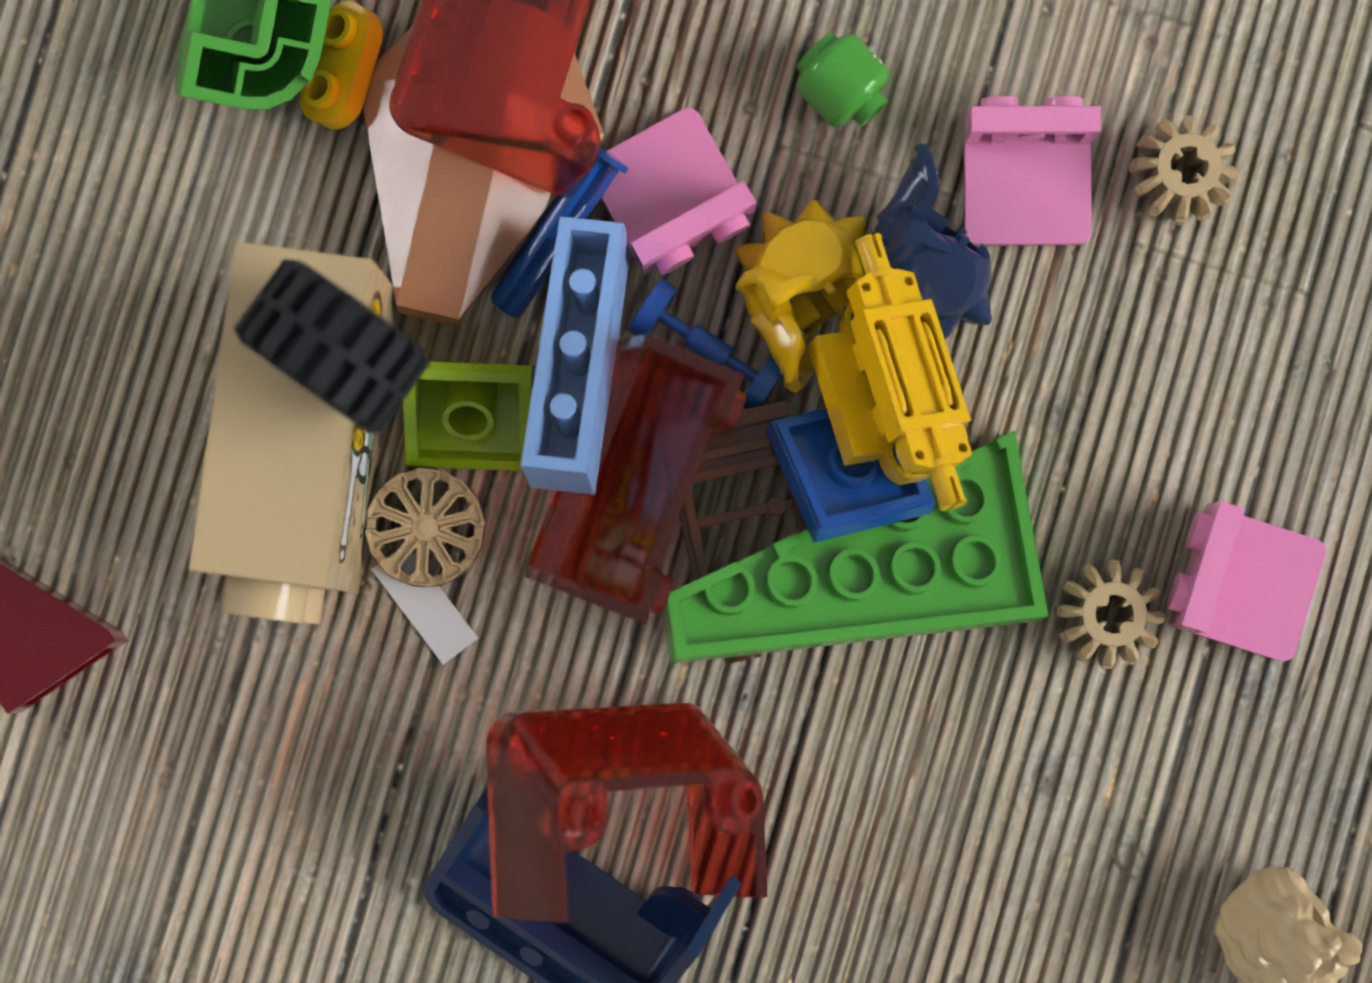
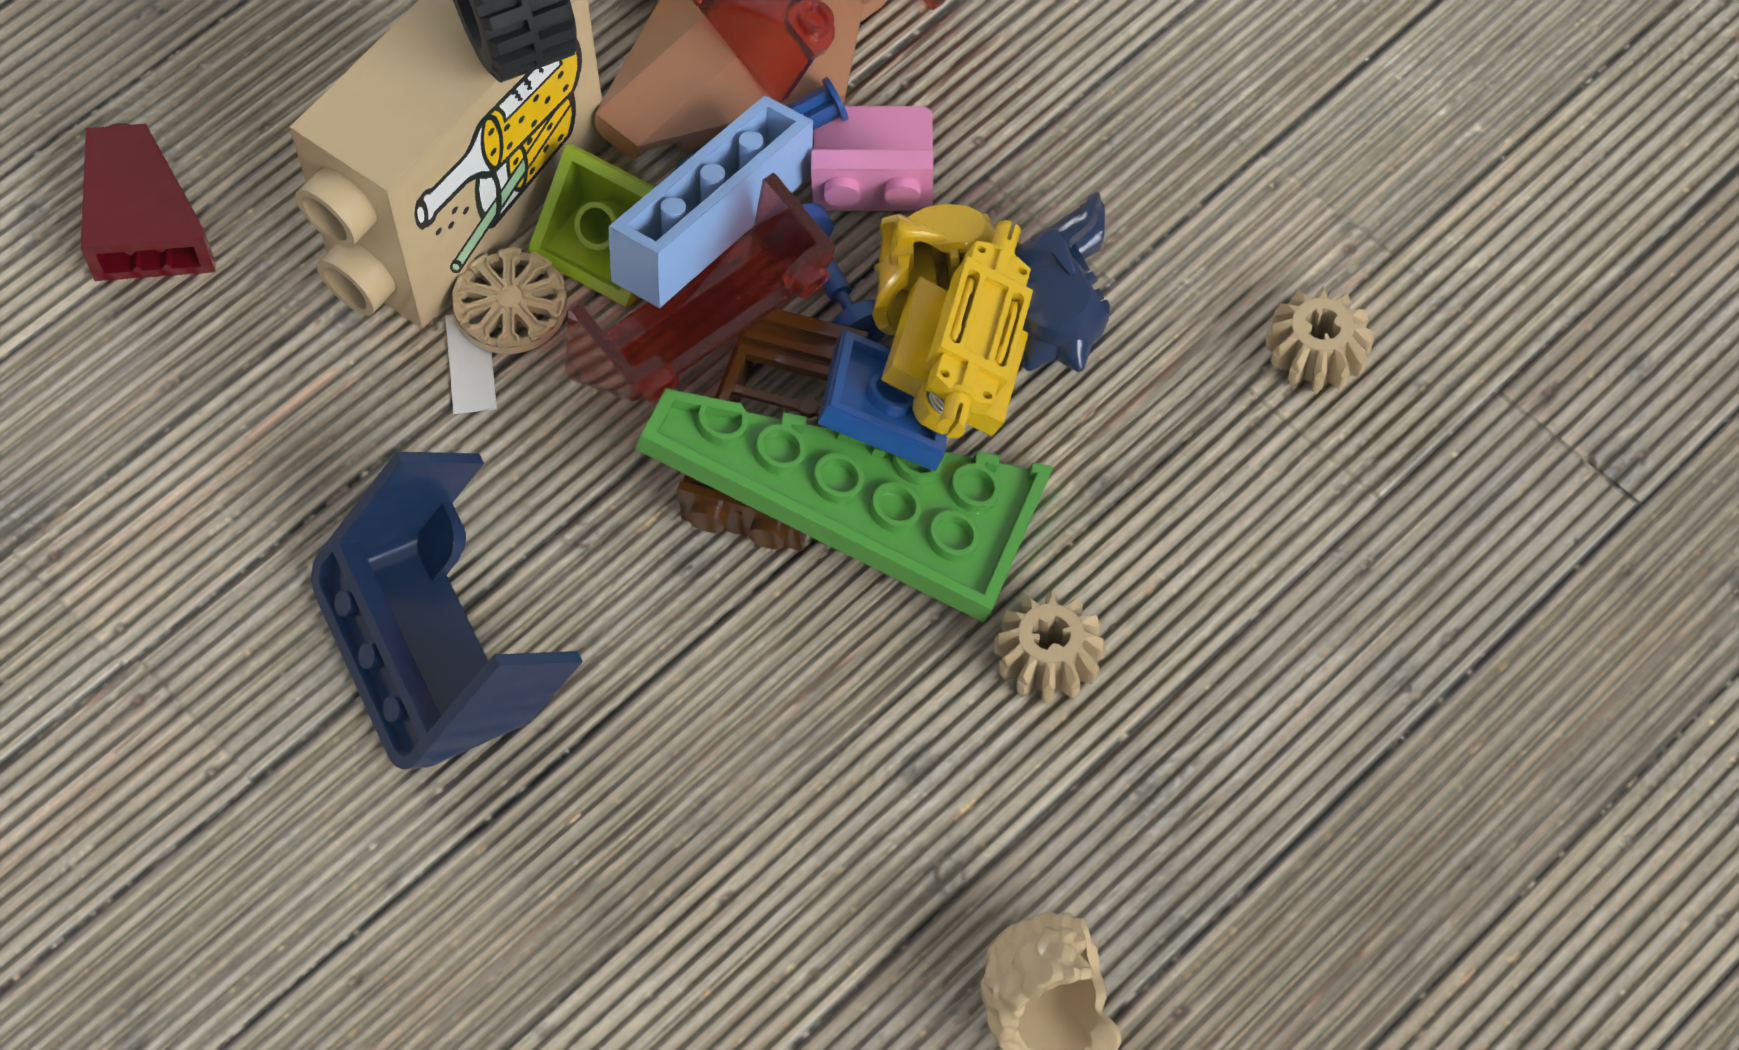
camera: 35 degrees right, 25 degrees down
(552, 787) = (483, 460): clear red windscreen -> none
(843, 80) = (1063, 139): bright green head -> none
(1029, 171) = (1186, 275): bright pink bracket -> none
(1245, 582) = (1185, 680): bright pink bracket -> none

